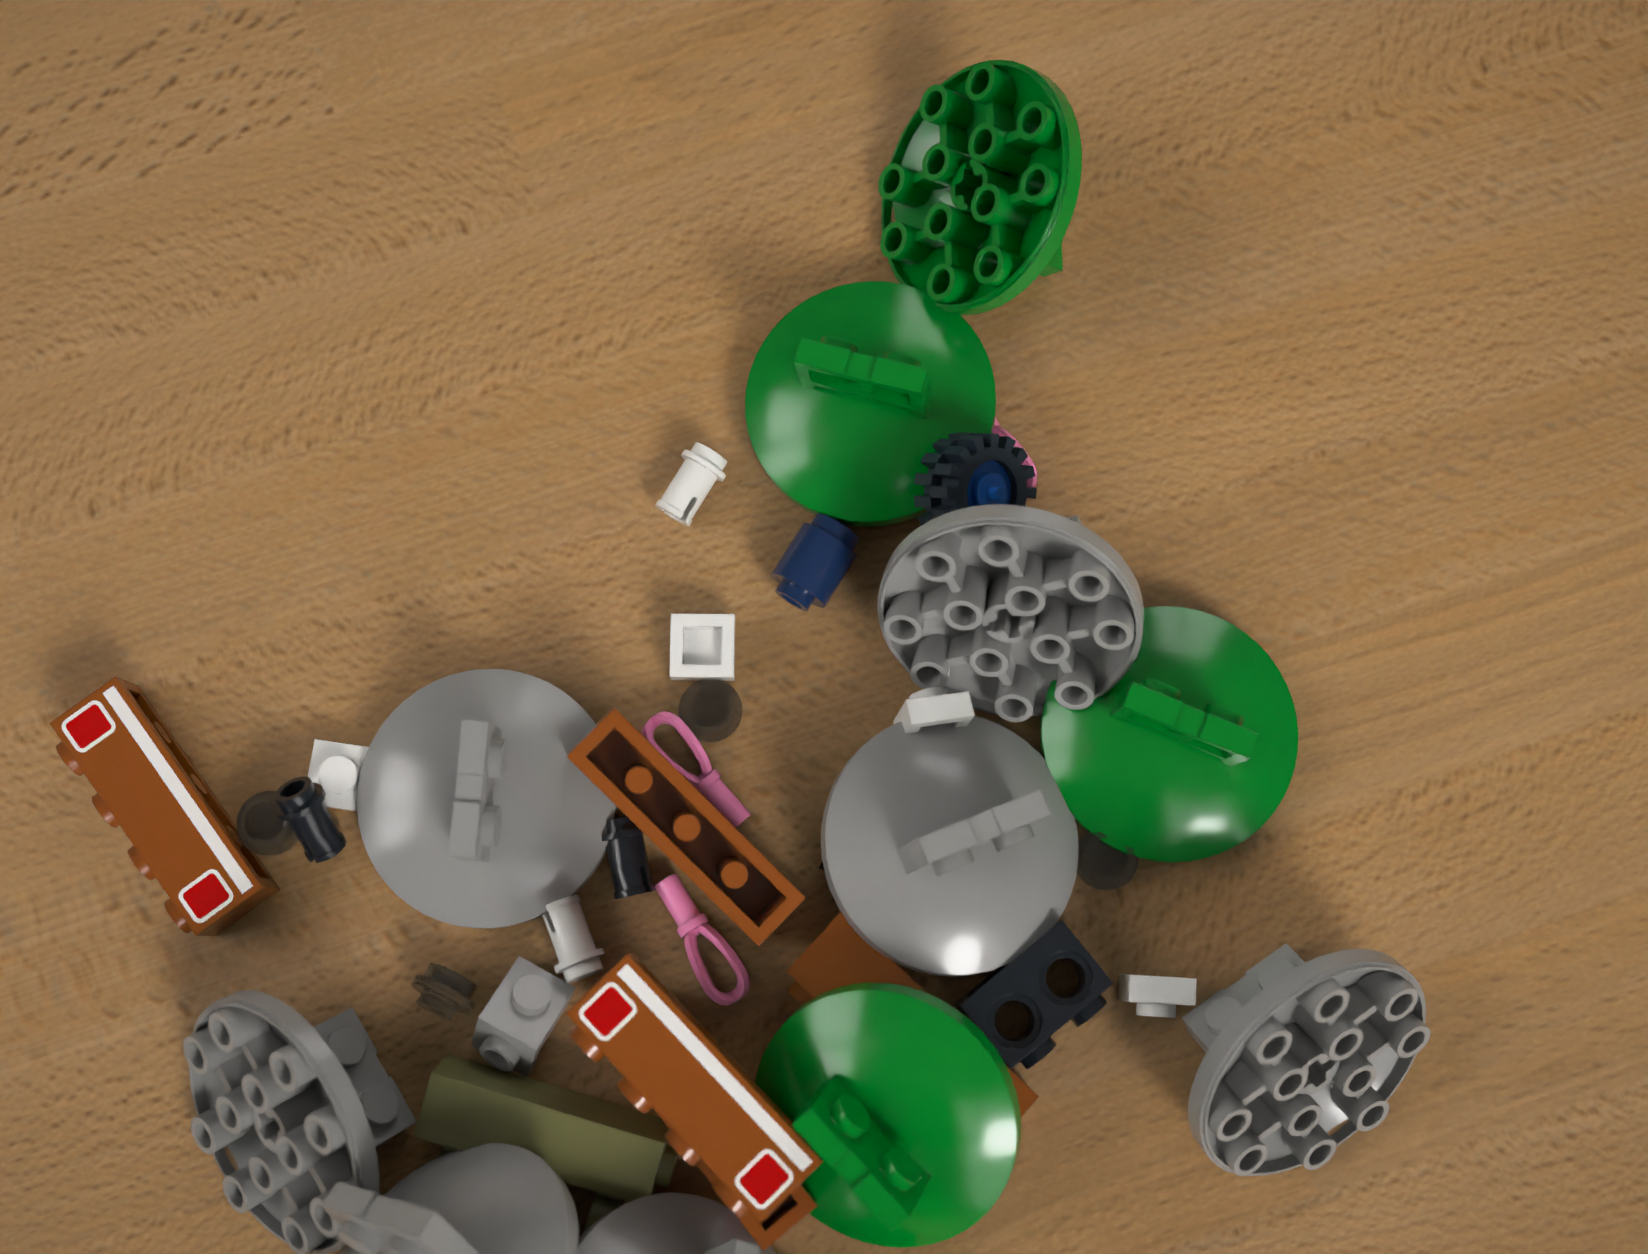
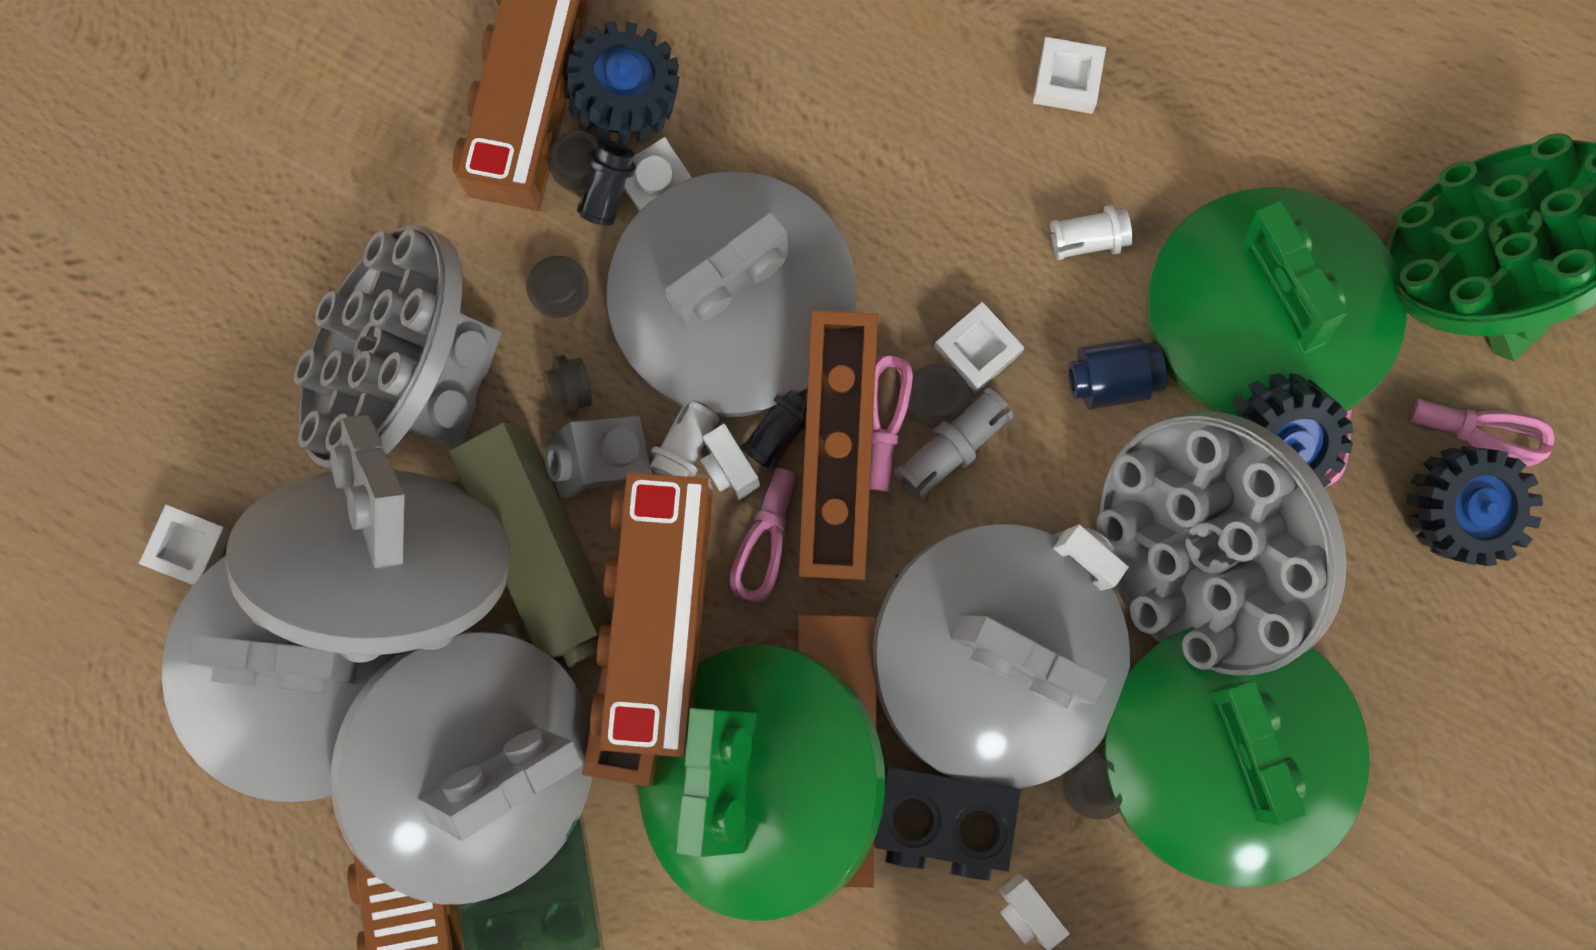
camera: 55 degrees right, 0 degrees up
(239, 734) = (621, 82): none -> black wheel
(357, 930) = (557, 286): none -> clear smoke plate
(555, 388) = (1069, 75): none -> white plate
(620, 921) = (728, 464): none -> white plate
(759, 733) = (954, 444): none -> light grey pin
(1077, 349) = (1464, 422): none -> bright pink piece
(1141, 398) = (1474, 505): none -> black wheel

